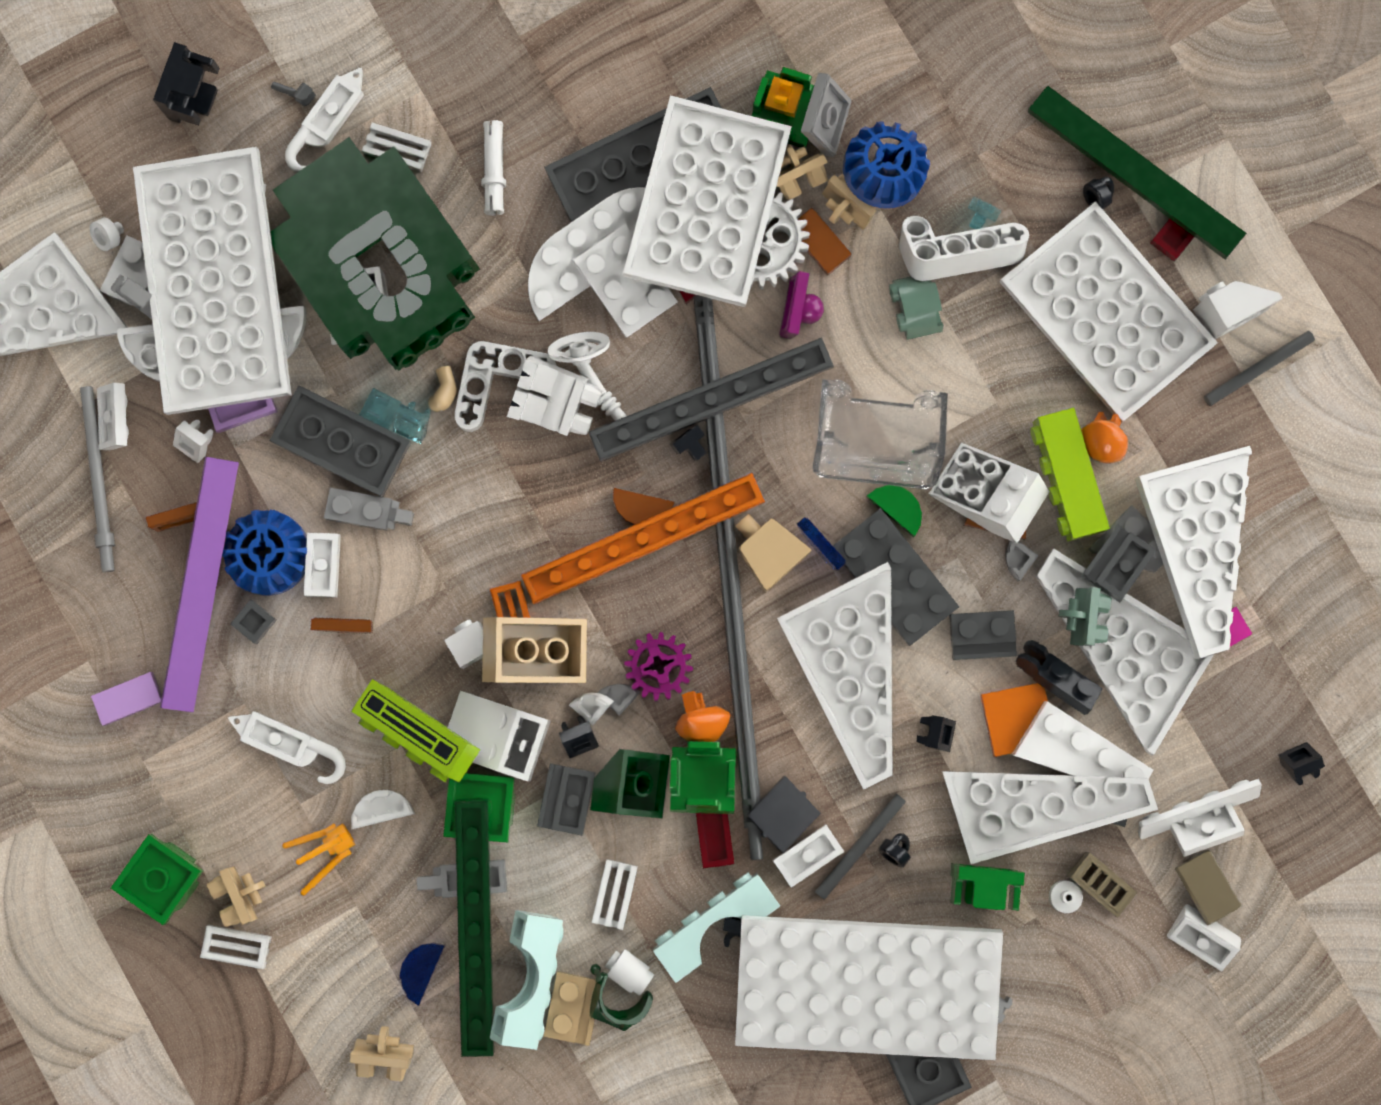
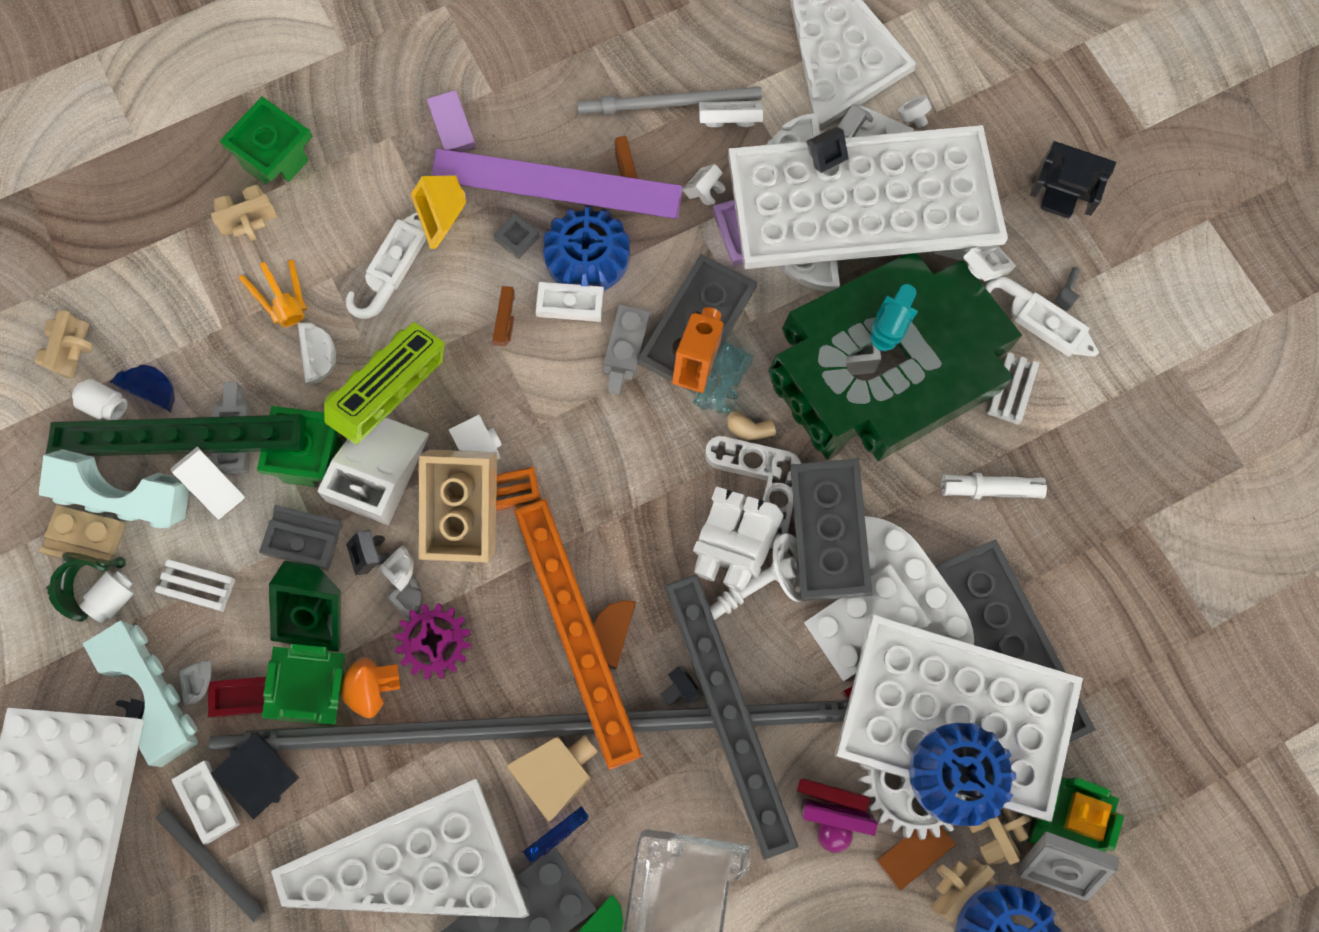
camera: 90 degrees right, 10 degrees down
(167, 314) = (828, 149): none -> black tile
(228, 698) = (438, 205): none -> yellow slope
(262, 951) = (206, 223): white tile -> none
(275, 165) = (988, 262): none -> white plate
(345, 252) = (893, 319): none -> teal arm
(374, 434) = (698, 350): none -> orange torso
(439, 1011) = (98, 400): none -> white brick
(519, 890) = (207, 483): none -> white tile
(543, 312) = (830, 530): none -> dark grey plate
(703, 880) = (195, 681): none -> light grey tile
(749, 221) = (935, 753): none -> blue gear
(776, 308) = (833, 795): none -> dark red tile
(893, 852) = (194, 903): black tile -> none

